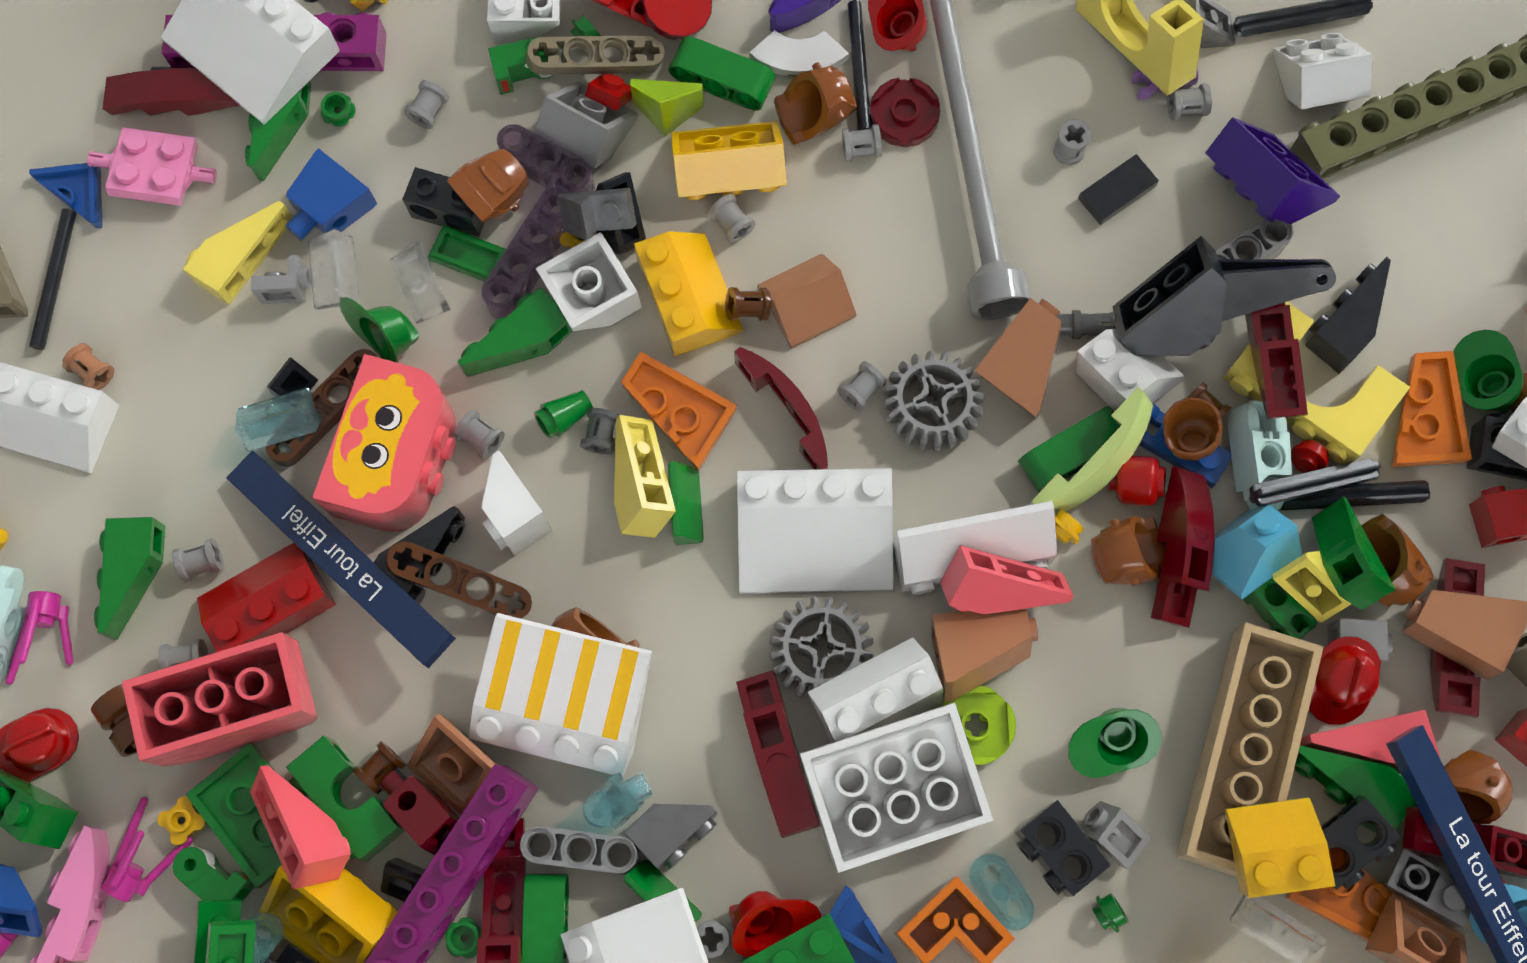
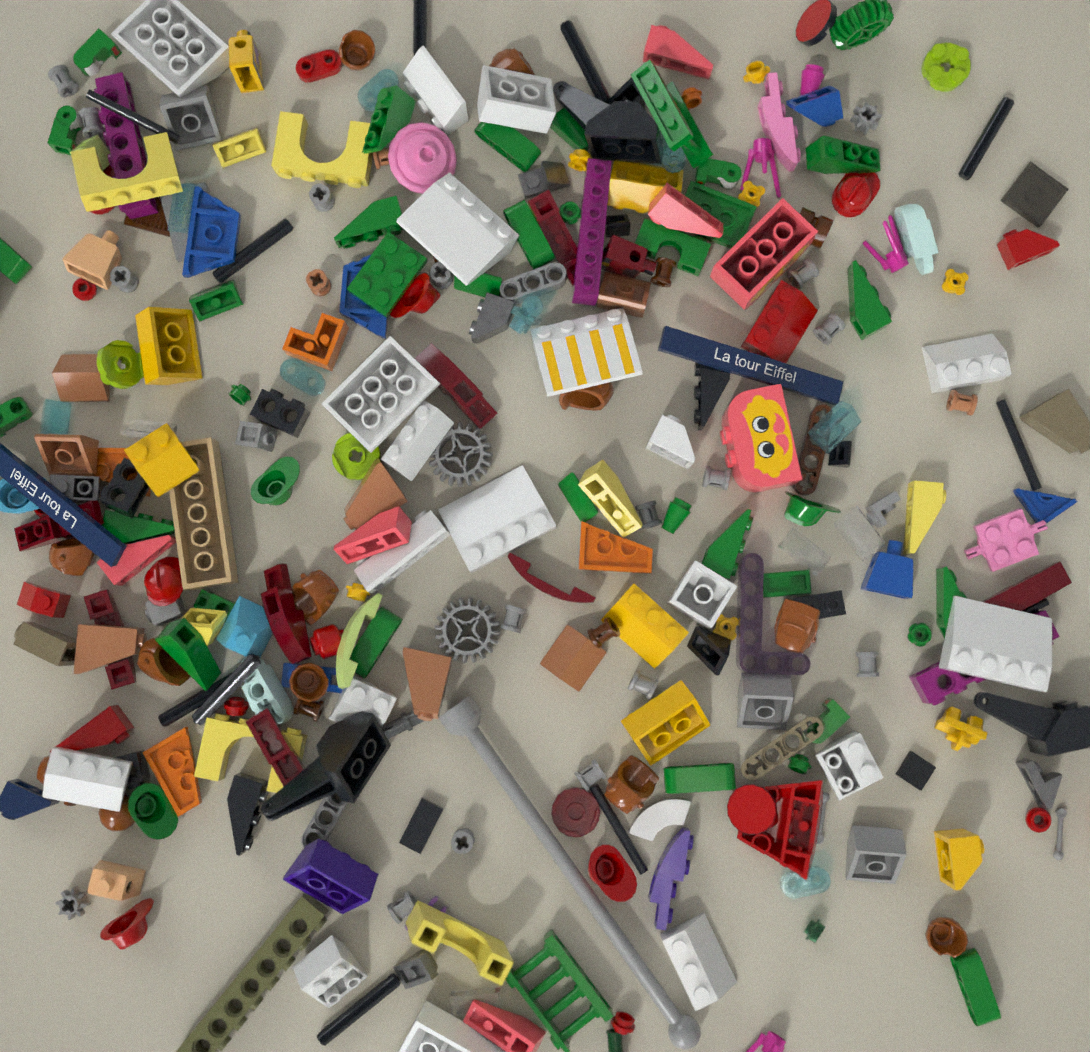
camera: 155 degrees right, 10 degrees up
(460, 577) = (677, 387): reddish brown beam -> none
(596, 211) = (722, 638): flat silver slope -> none
(609, 91) = (761, 729): red plate -> none
(667, 102) = (721, 740): lime slope -> none

